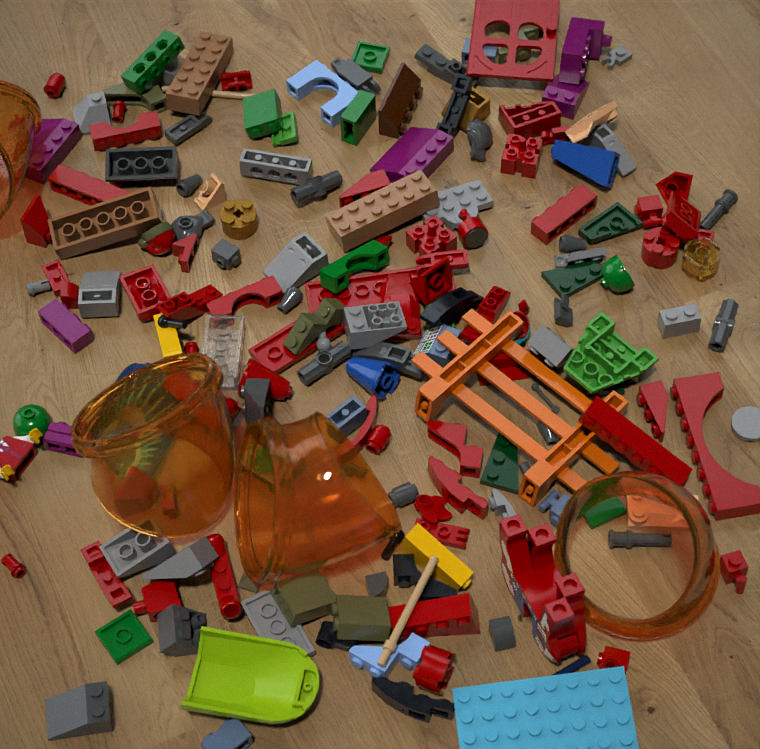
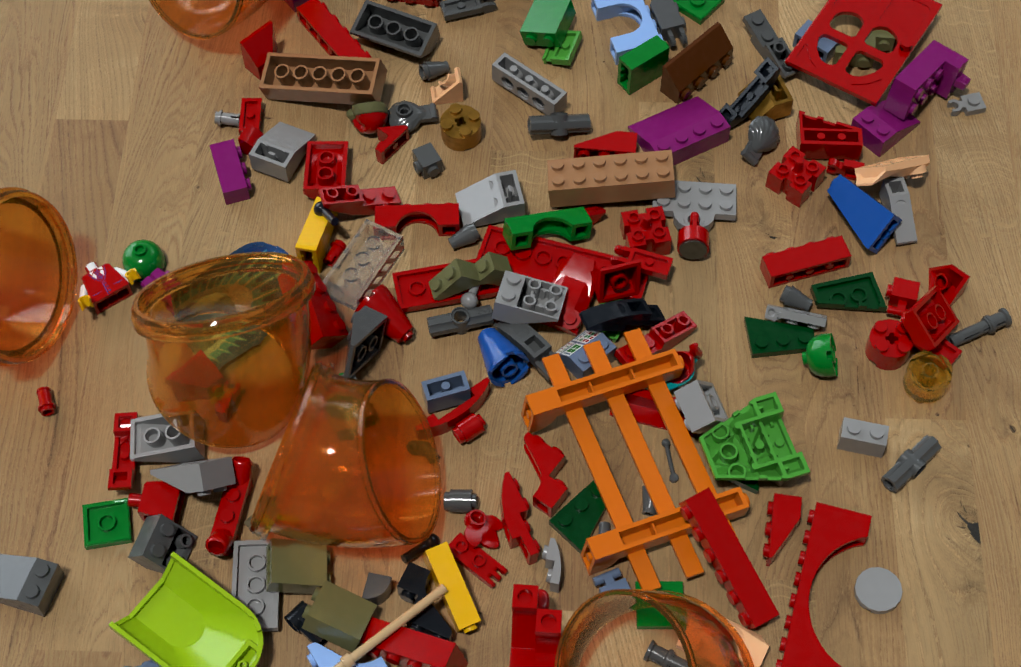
camera: 25 degrees right, 5 degrees up
(562, 312) = (741, 371): dark grey plate -> none

